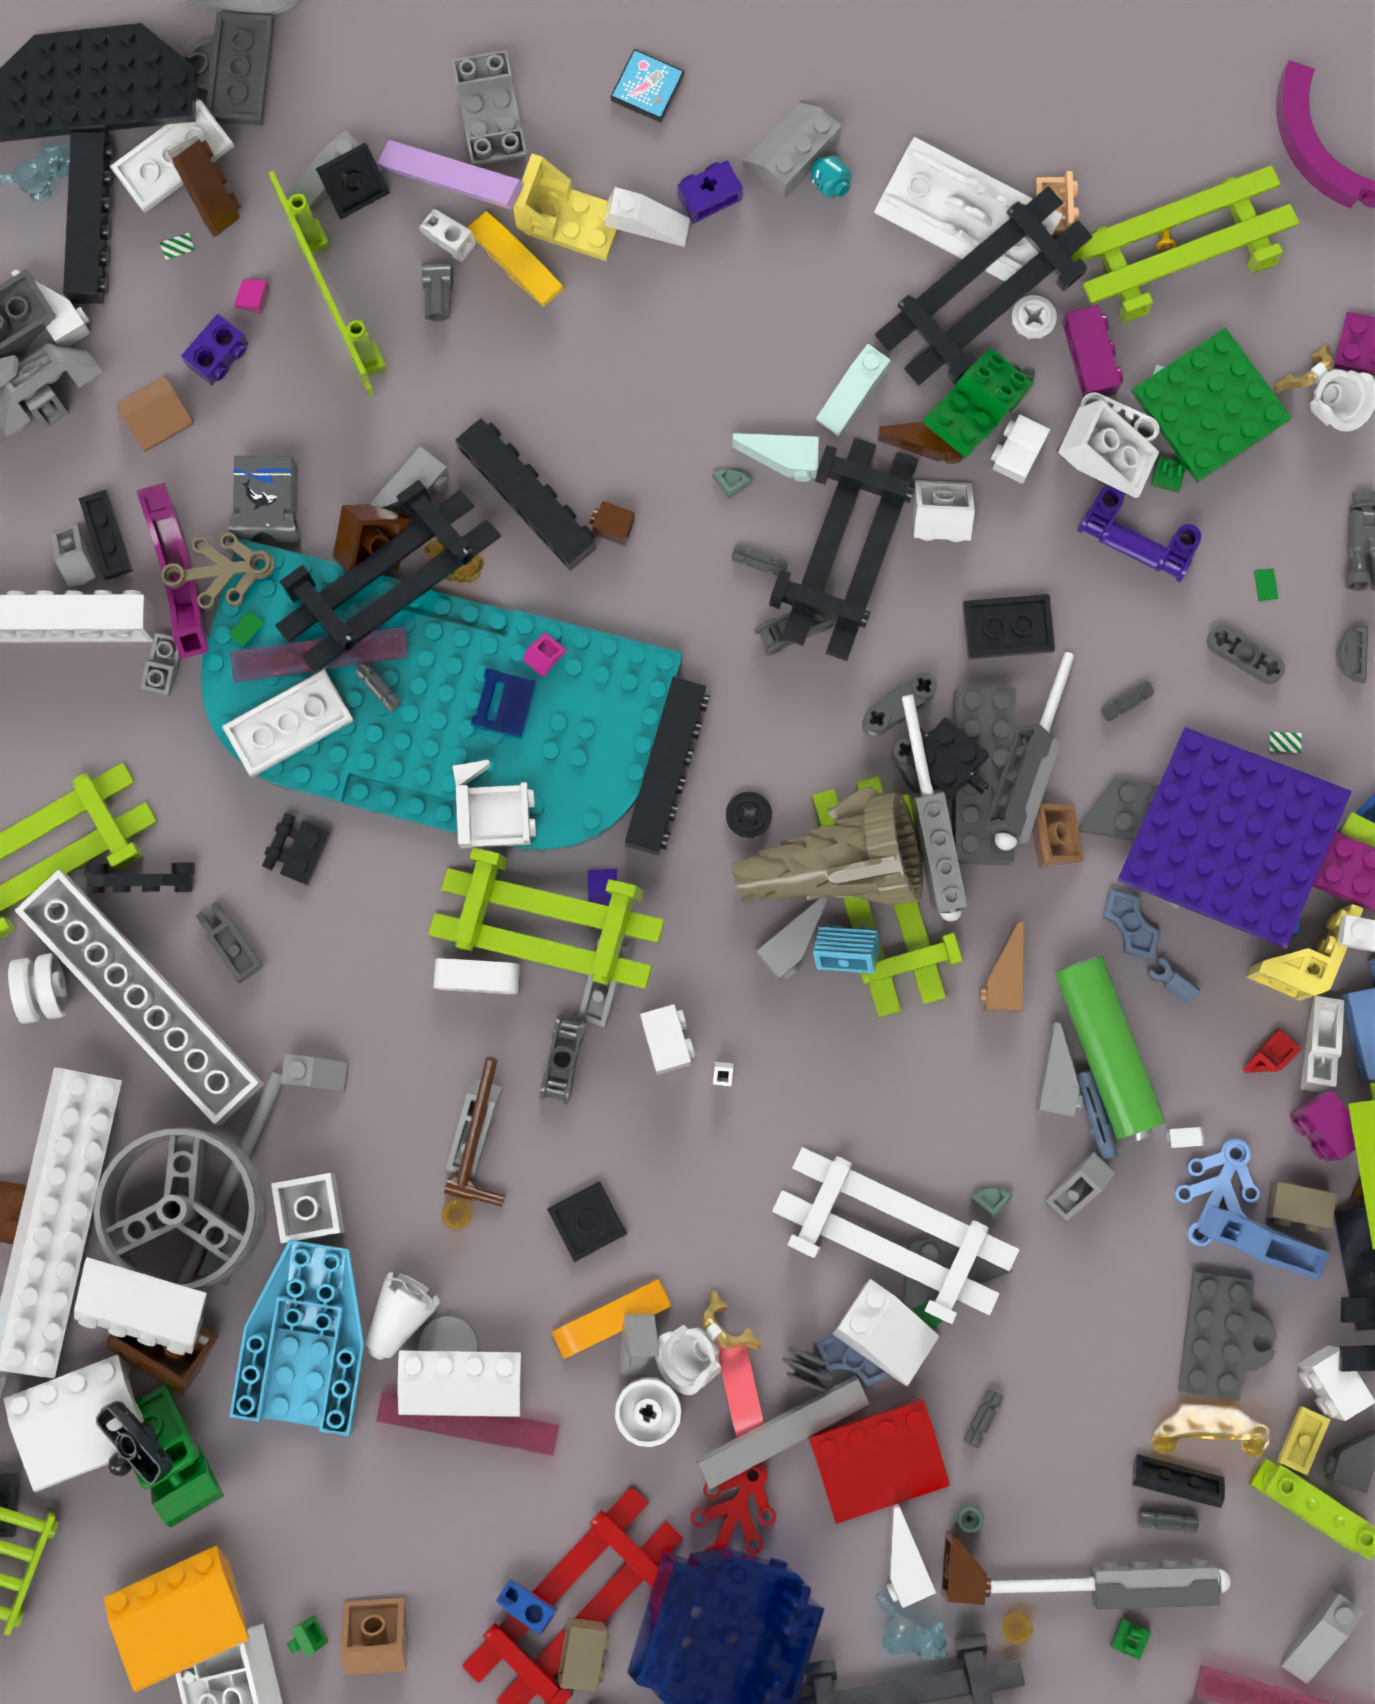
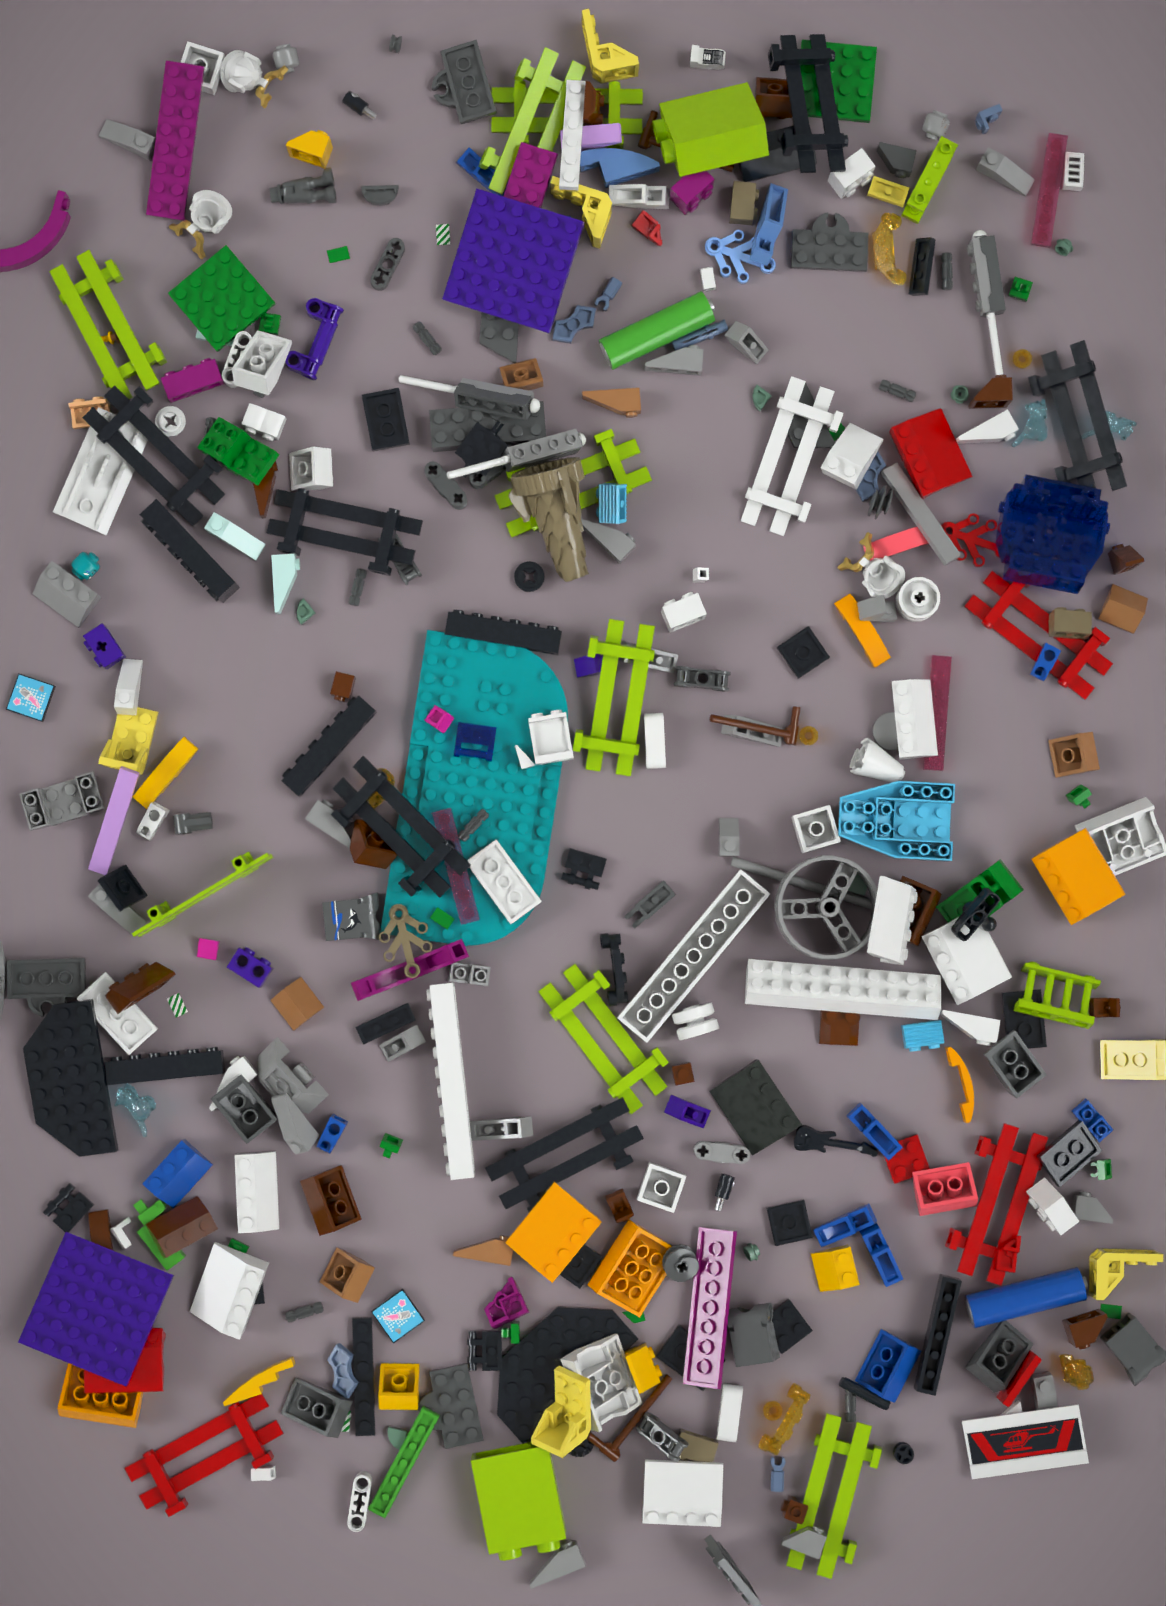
camera: 100 degrees left, 5 degrees up
(835, 320) = (184, 546): none -> black brick

